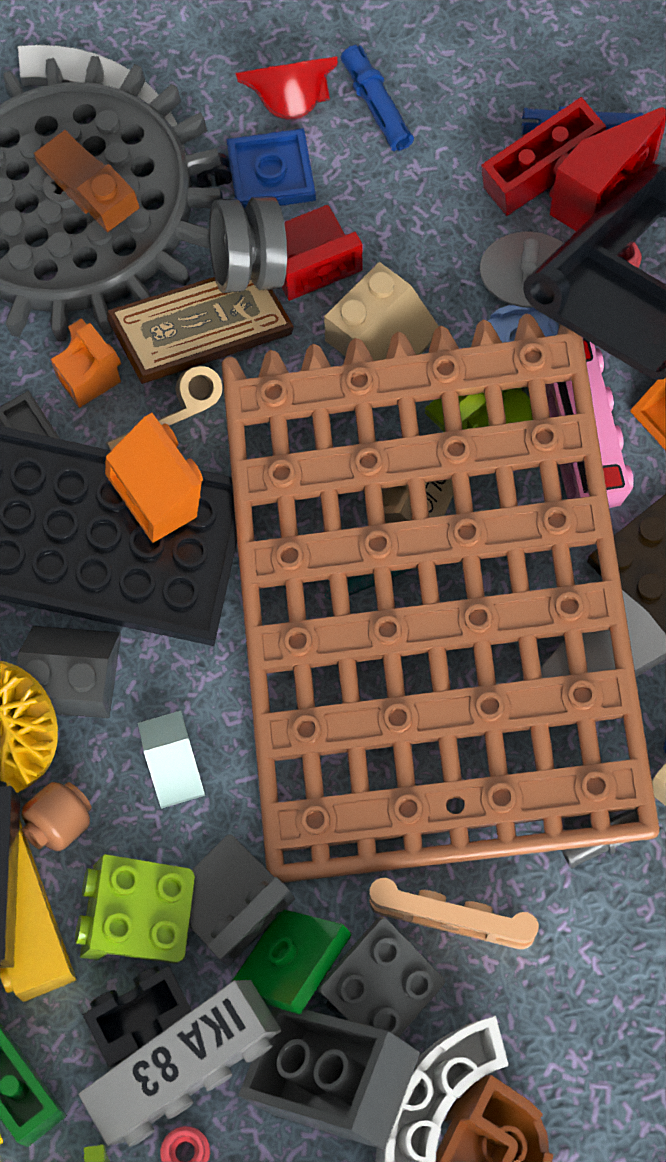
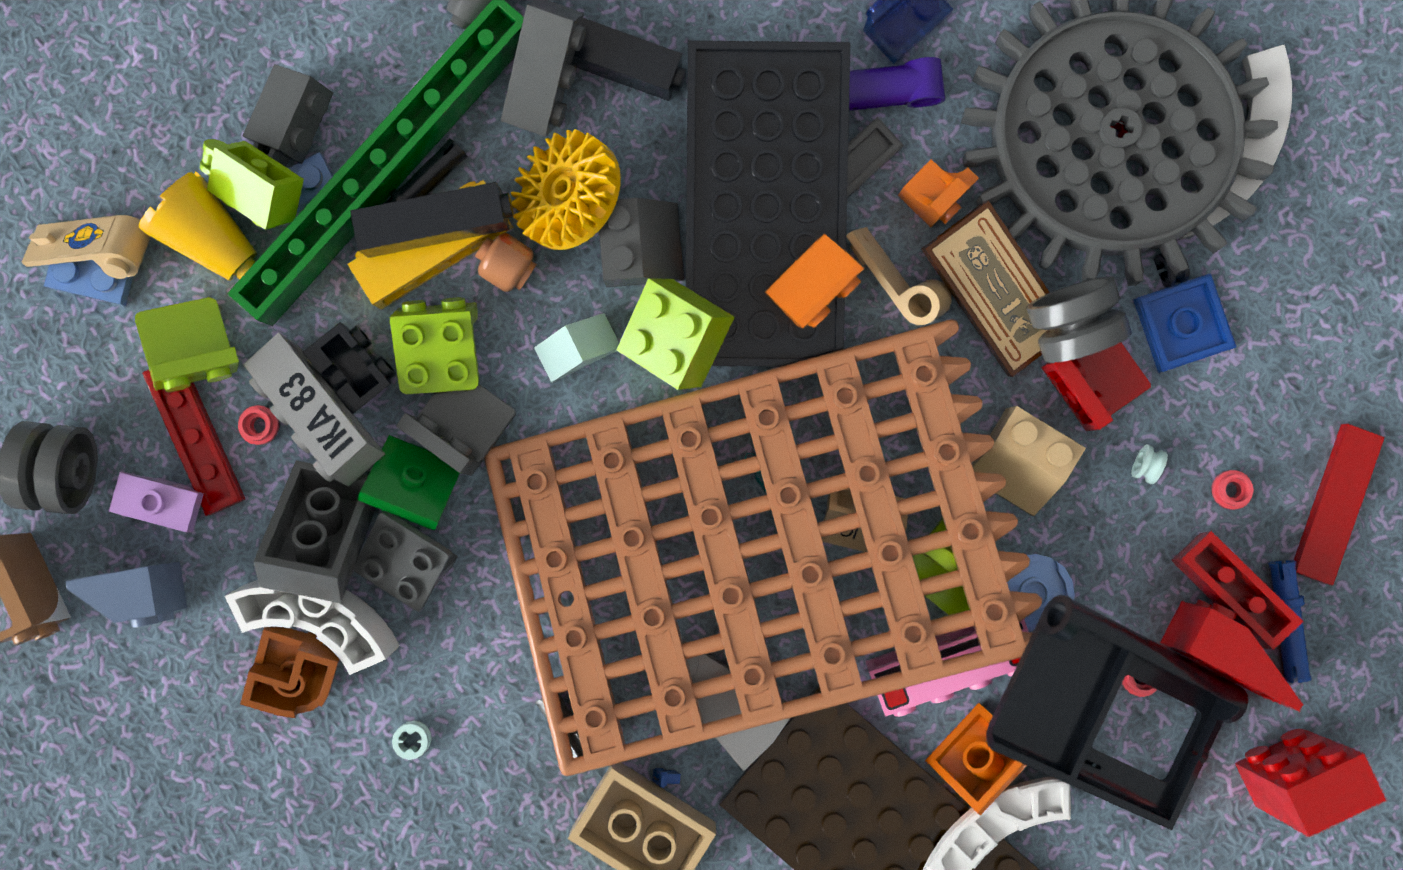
camera: 75 degrees right, 20 degrees up
(87, 181) = (1124, 149): dark orange slope -> none
(178, 635) = (675, 333): none -> brick
(292, 88) = (1275, 328): red hat -> none
(369, 85) = (1296, 404): blue pin -> none
(406, 217) = (1149, 464): none -> light aqua bush
(448, 143) = (1243, 494): none -> coral plate
(470, 920) = (475, 626): light nougat plate -> none
(473, 69) = (1337, 503): none -> red tile
(511, 261) = (1116, 584): light grey shield -> none
(613, 1025) = (413, 752): none -> light aqua bush

